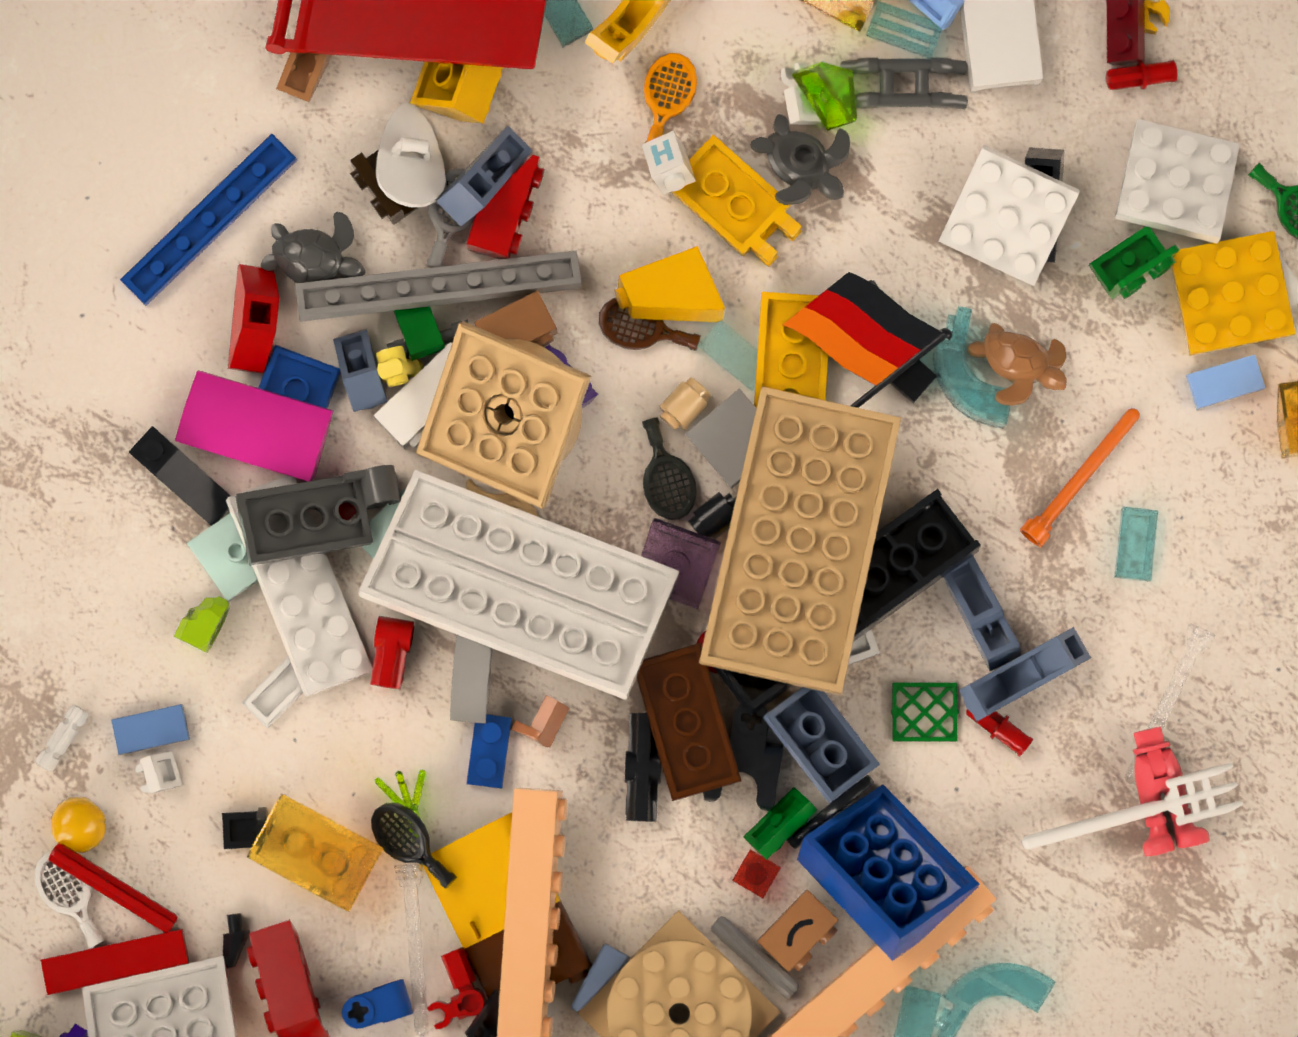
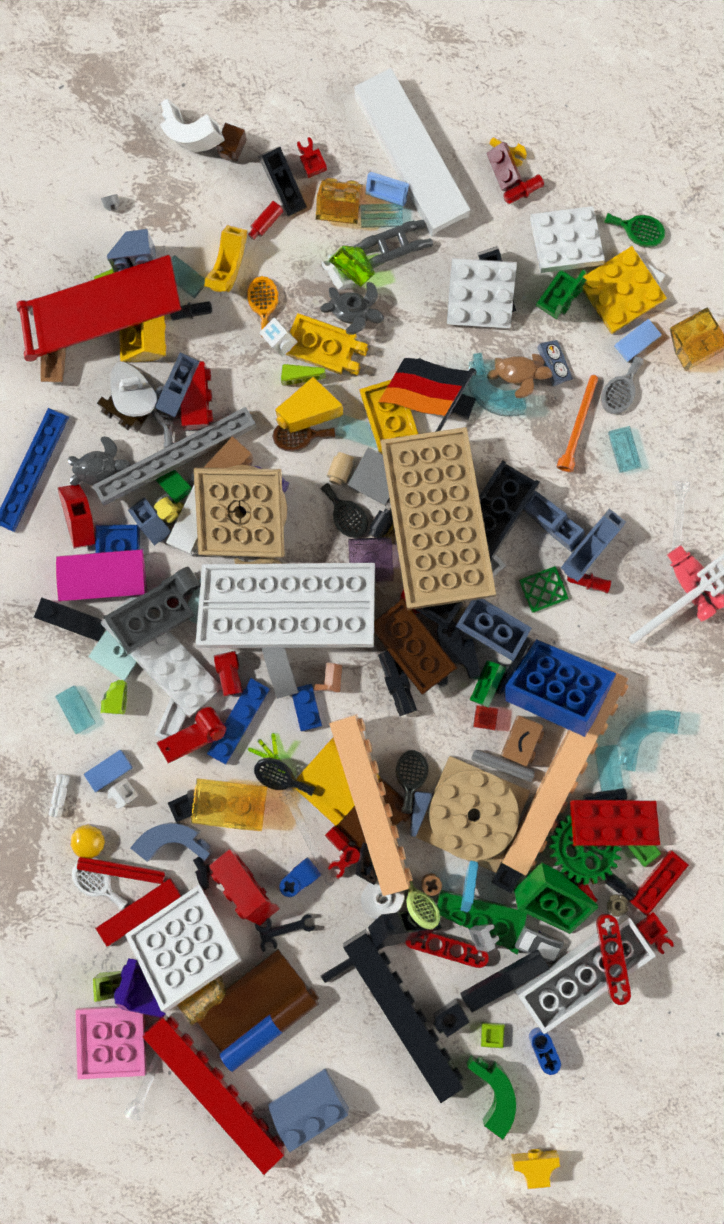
camera: 15 degrees left, 0 degrees up
(136, 616) = (75, 709): none -> clear light blue tile
(185, 859) = (153, 839): none -> sand blue arch
(323, 726) = (204, 731): none -> red door
(377, 731) = (239, 721): none -> blue plate
(557, 68) = (192, 310): none -> black axle
(583, 961) = (407, 806): none -> pearl dark grey piece
(674, 230) = (298, 374): none -> lime slope
(1083, 366) = (555, 361): none -> slope
(1198, 425) = (637, 362): none -> light grey piece

